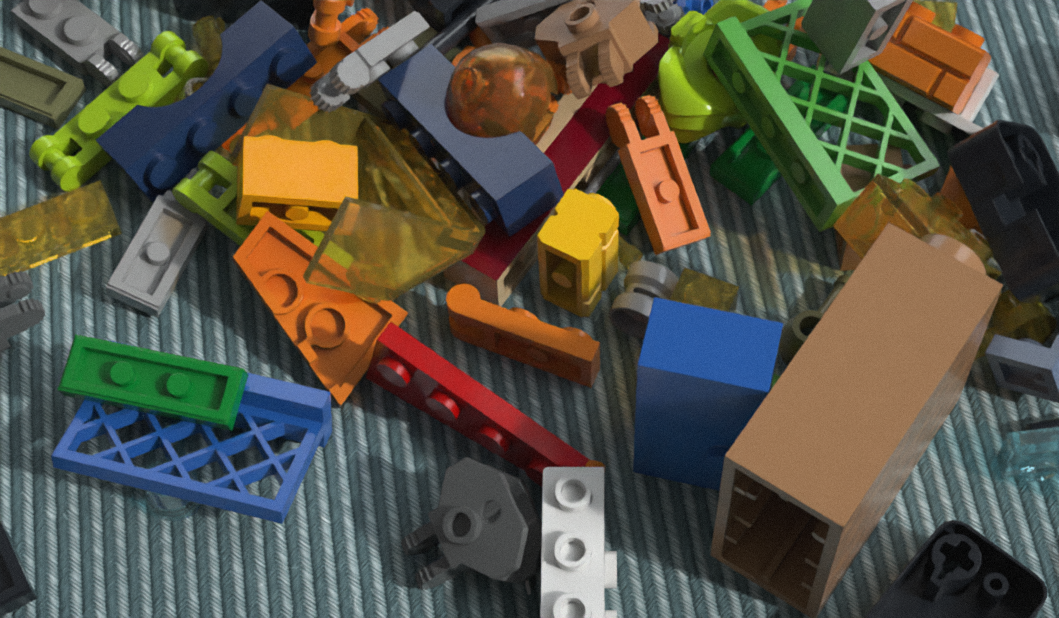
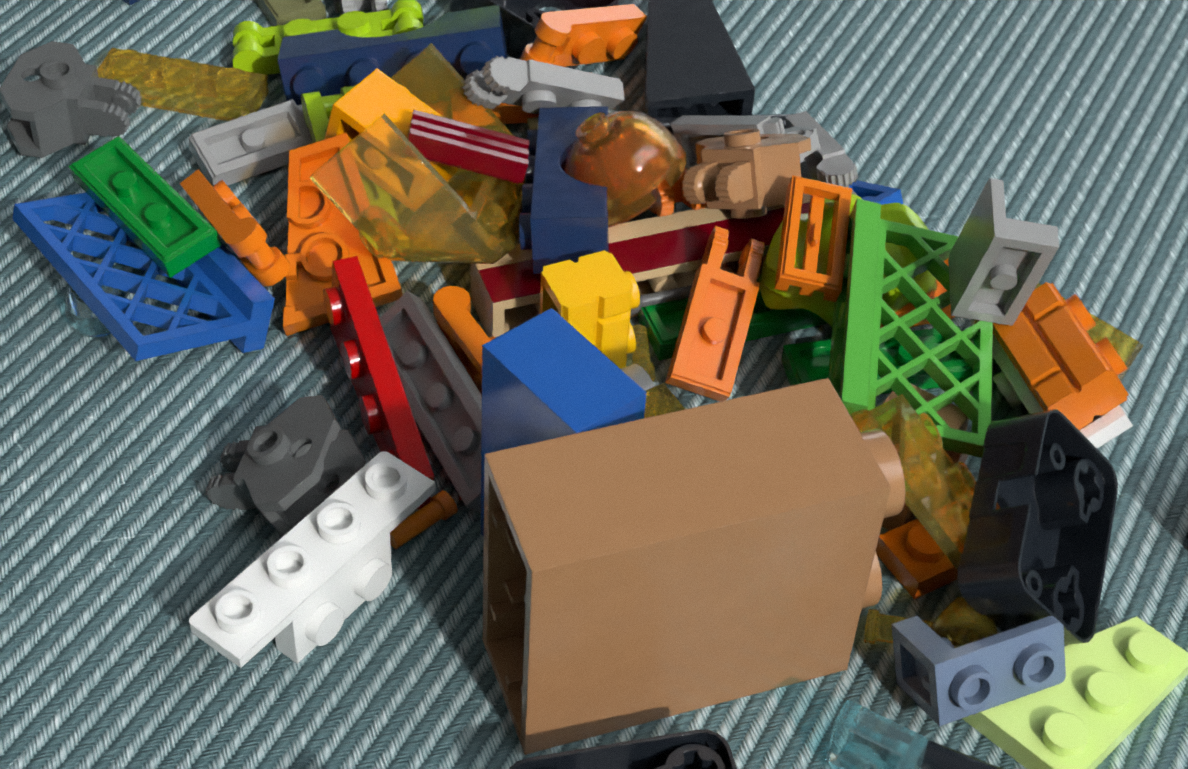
camera: 30 degrees right, 15 degrees down
(237, 348) = (237, 228): none -> orange plate
(376, 161) = (469, 147): none -> dark red tile
(544, 392) = (438, 393): none -> light grey plate
(689, 75) = (807, 277): none -> orange tile

